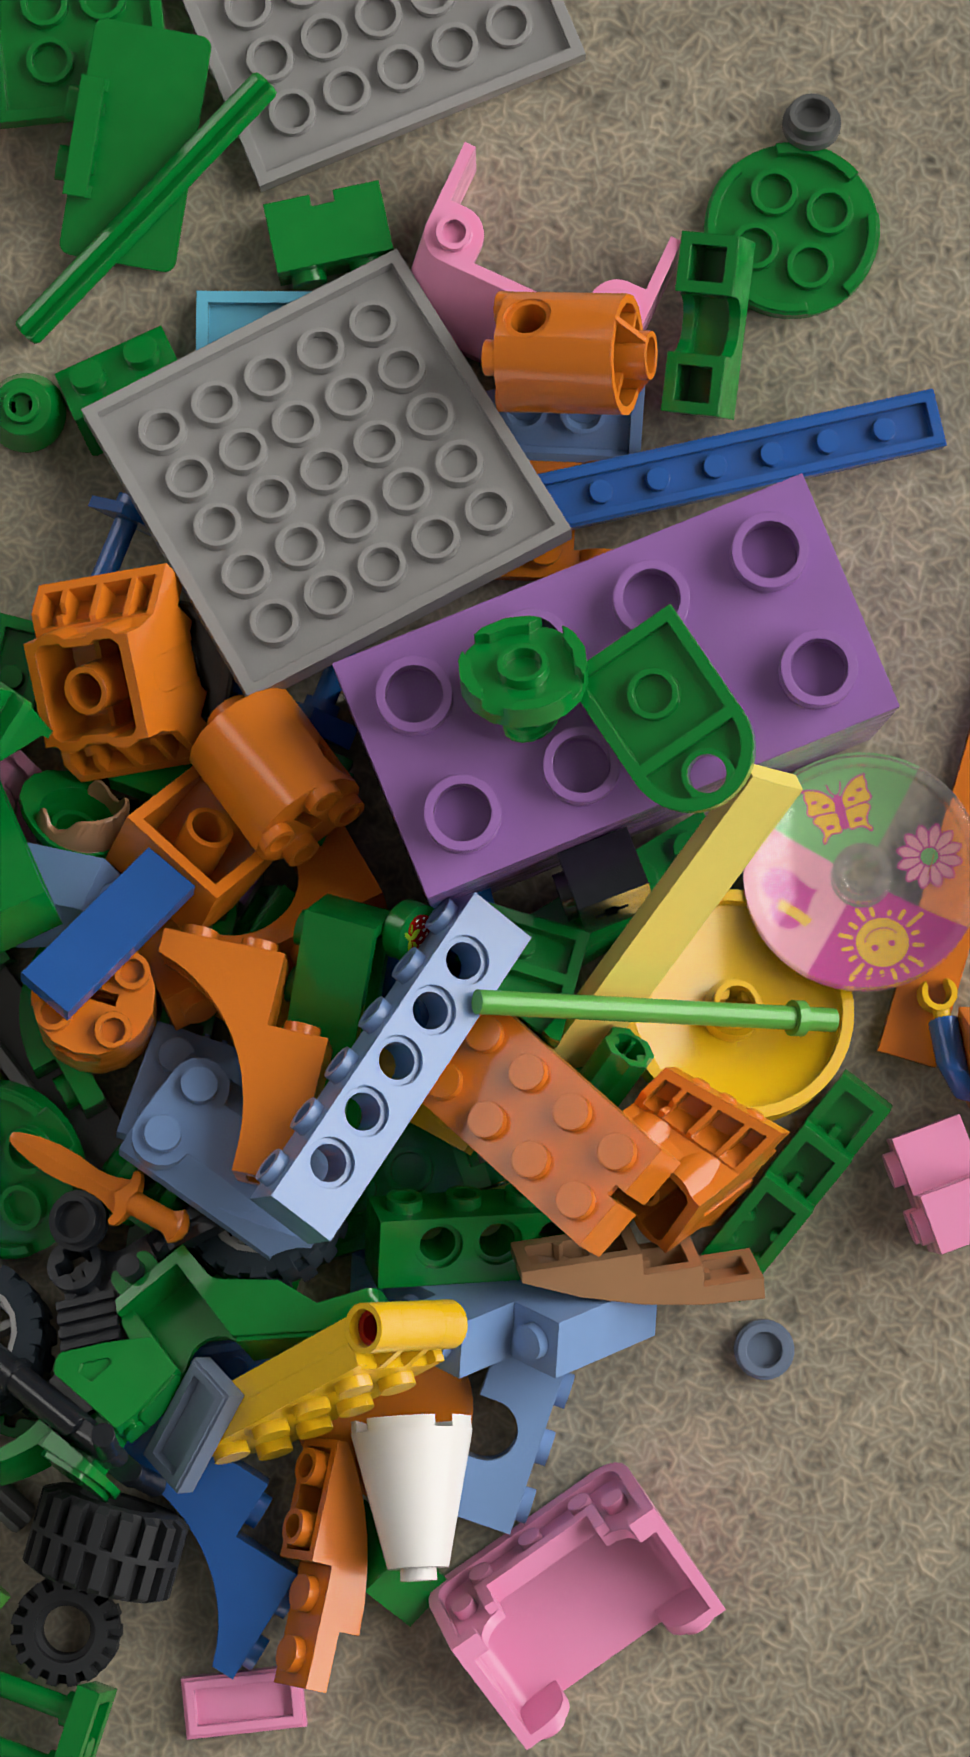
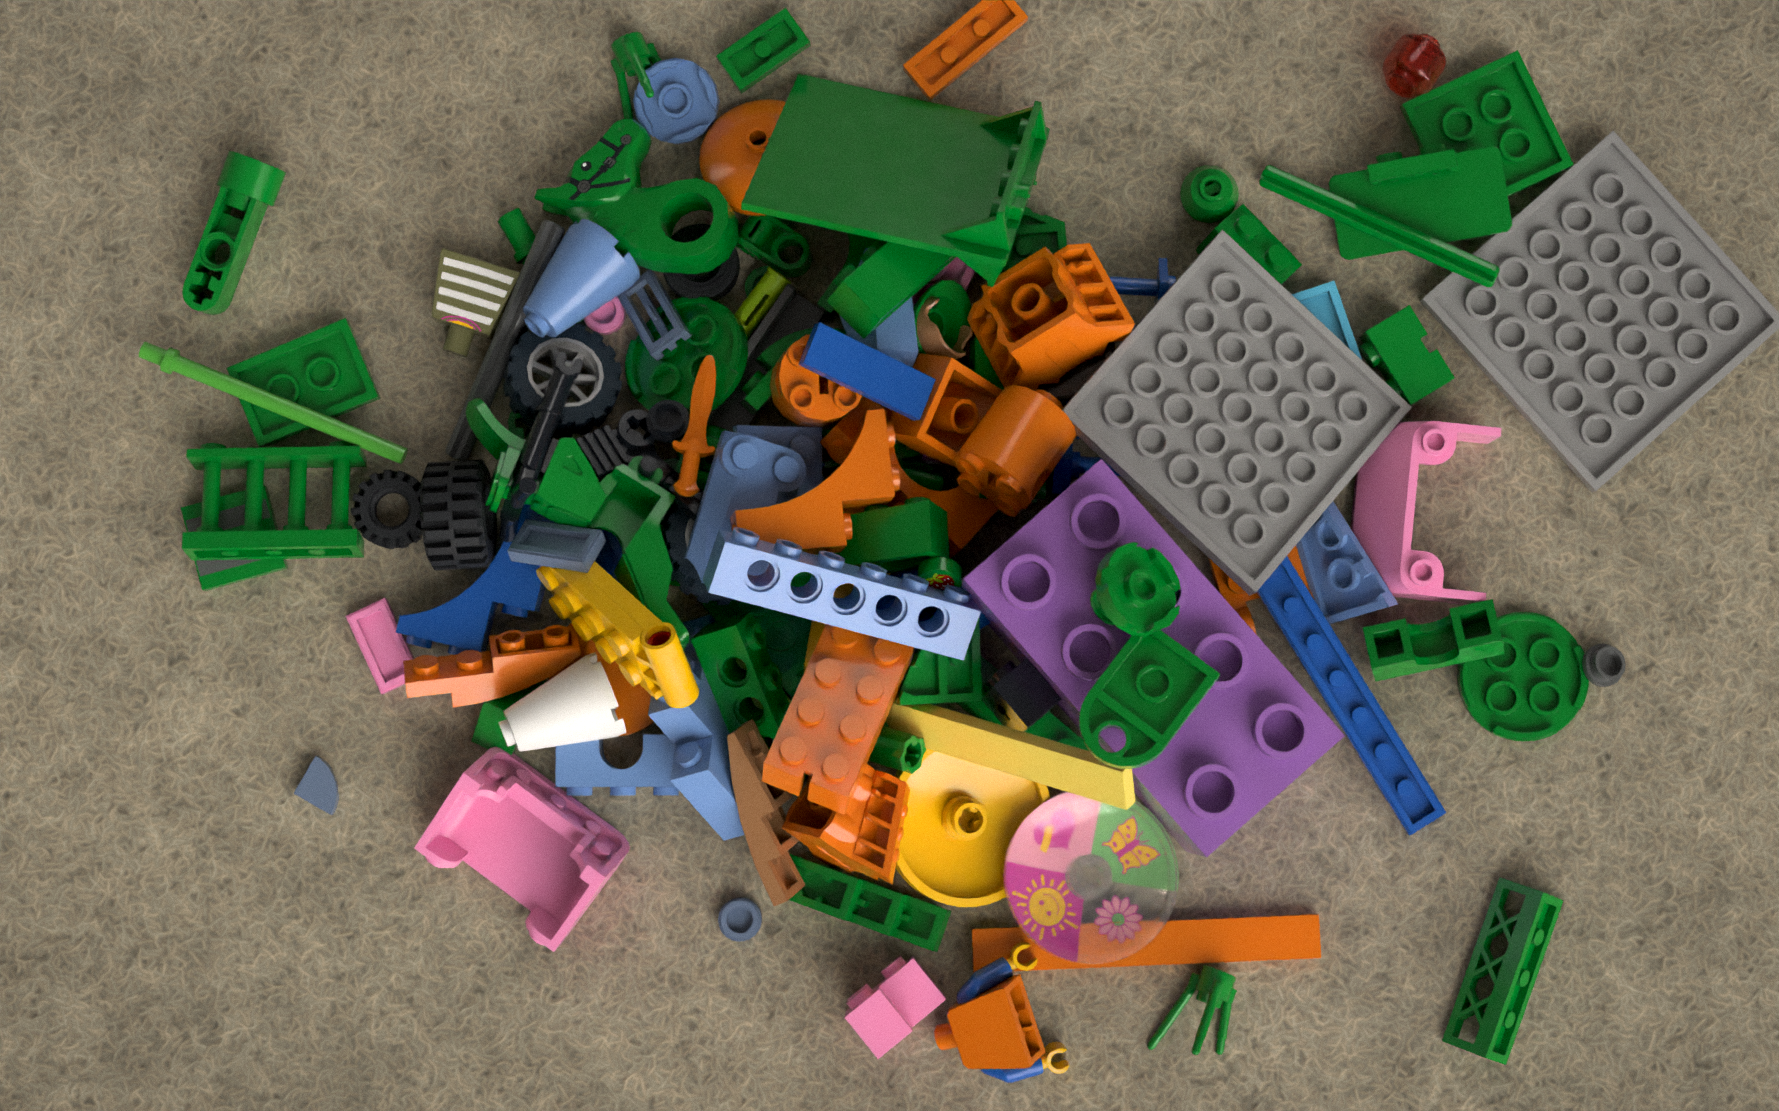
camera: 70 degrees right, 0 degrees up
(568, 353) = (1377, 549): orange cylinder -> none
(794, 1017) = (973, 862): bright green bar -> none

